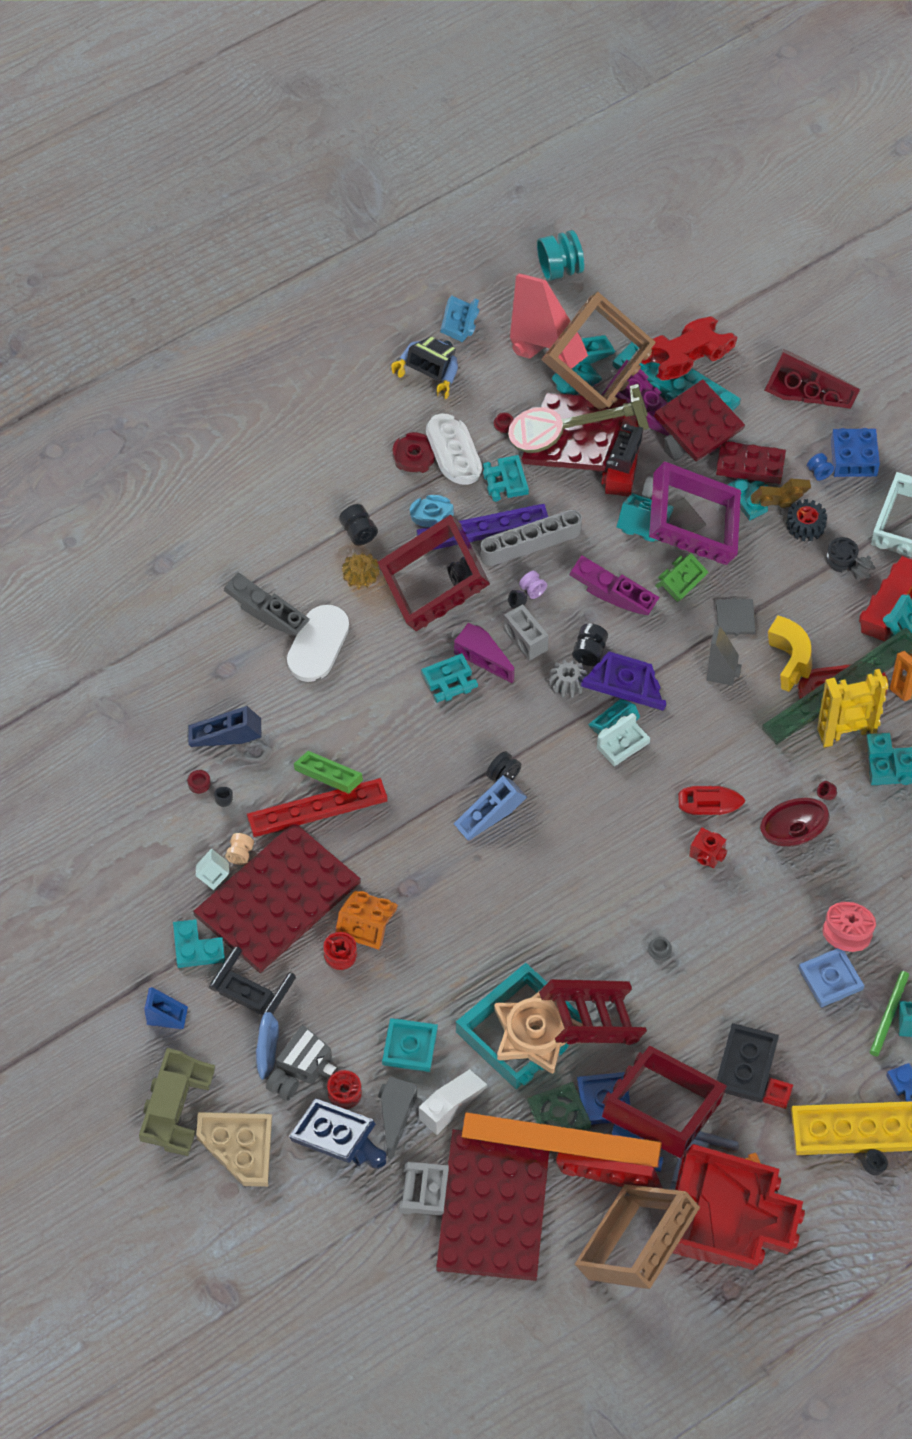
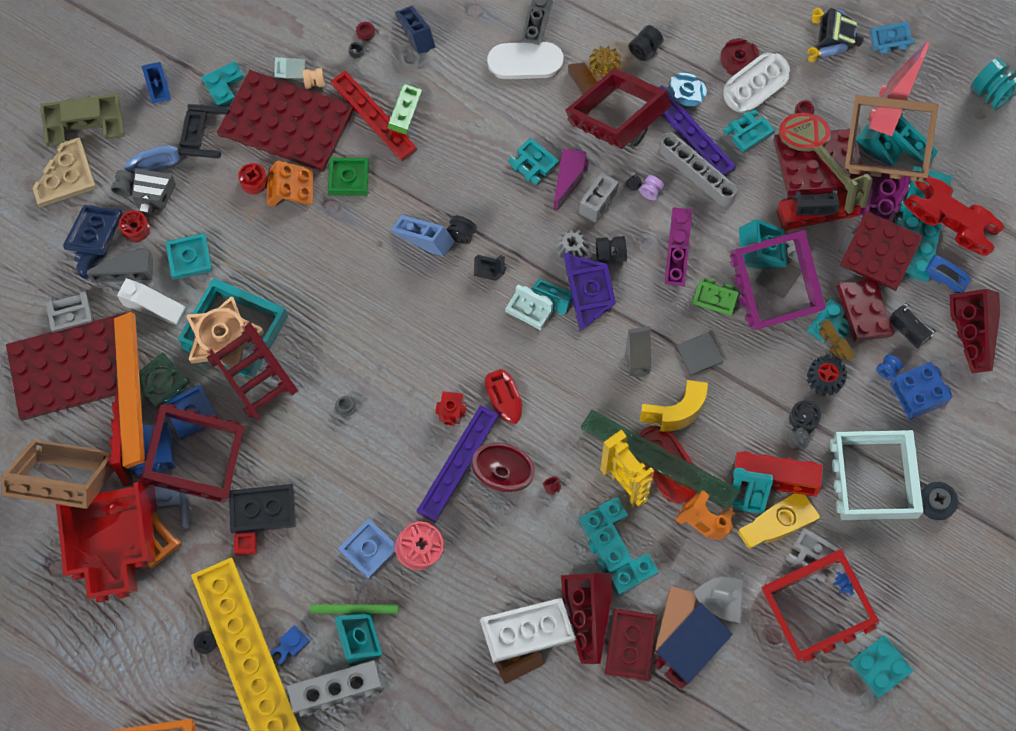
camera: 70 degrees right, 10 degrees up
(371, 599) = (582, 76): none -> reddish brown slope
(380, 858) = (348, 176): none -> green tile
(559, 759) = (489, 267): none -> black bracket
(743, 381) = (946, 272): none -> blue slope
(770, 866) = (457, 464): none -> dark purple plate
(785, 434) = (911, 326): none -> black hinge

